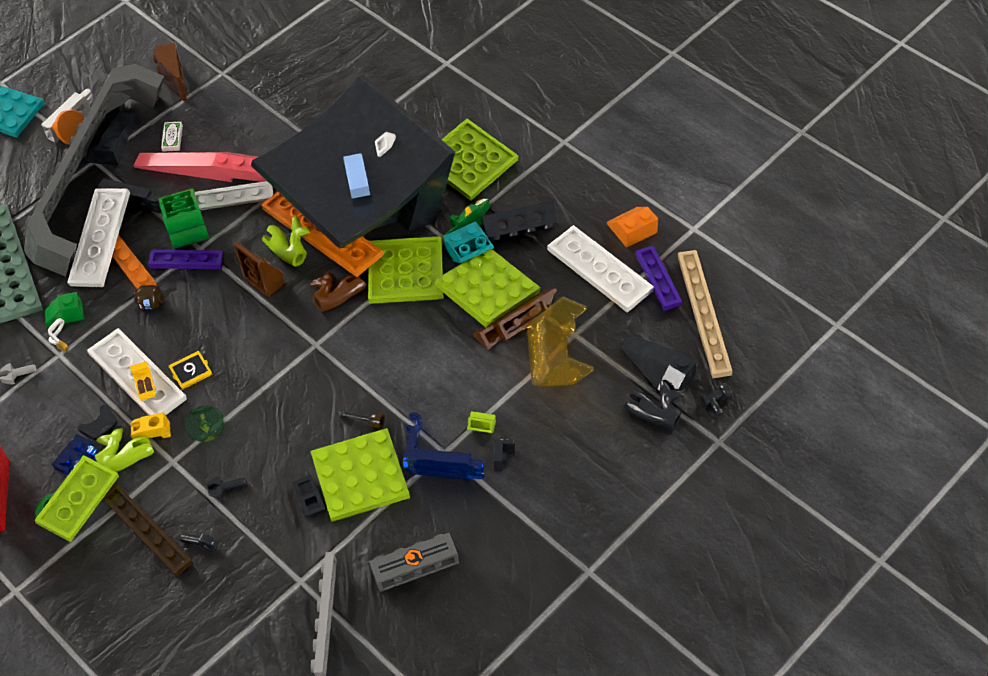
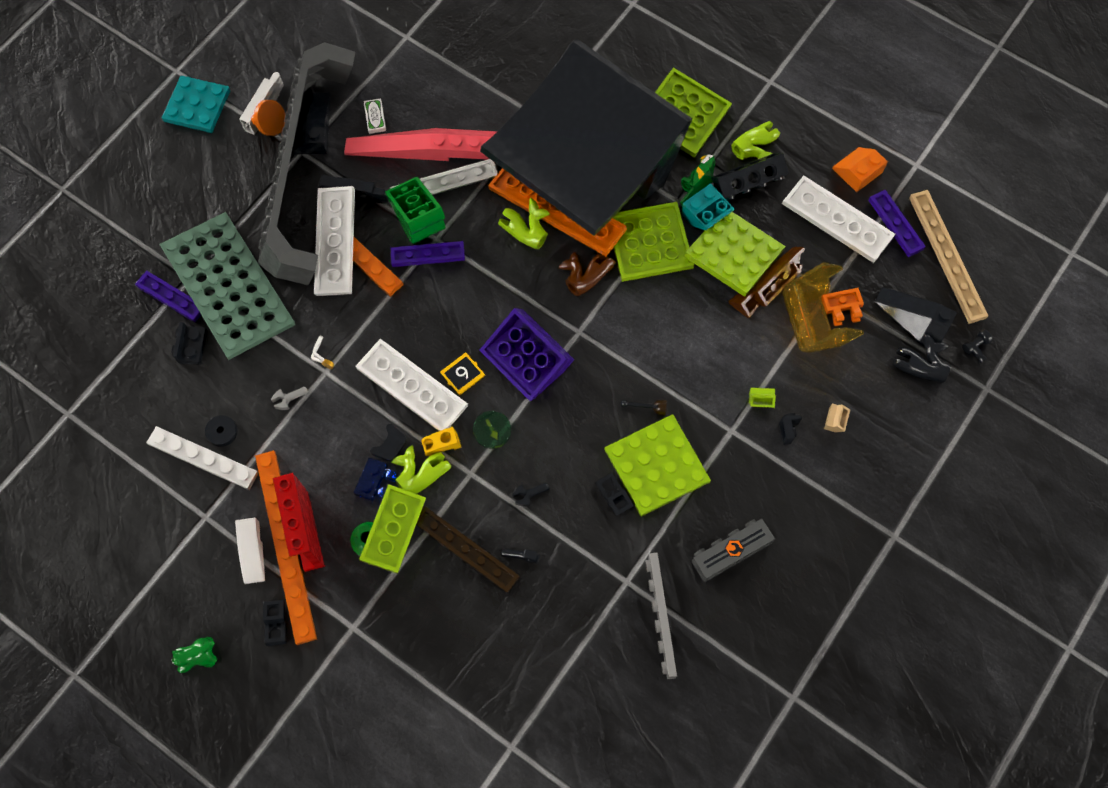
camera: 10 degrees left, 15 degrees up
(65, 307) = (318, 323): green slope -> none
(143, 380) = (424, 395): yellow leg -> none
(148, 297) = (401, 300): dark brown head -> none
(170, 68) = (355, 39): reddish brown slope -> none
(256, 357) = (526, 354): none -> dark purple slope
(259, 270) = (507, 261): reddish brown slope -> none
(356, 175) = (595, 153): light blue slope -> none
(384, 143) = (616, 115): white slope -> none
(435, 462) = (729, 446): clear blue hinge -> none
(523, 192) = (743, 145): none -> lime piece
(553, 450) = (837, 418): none -> tan piece
(585, 343) = (842, 301): none -> orange plate

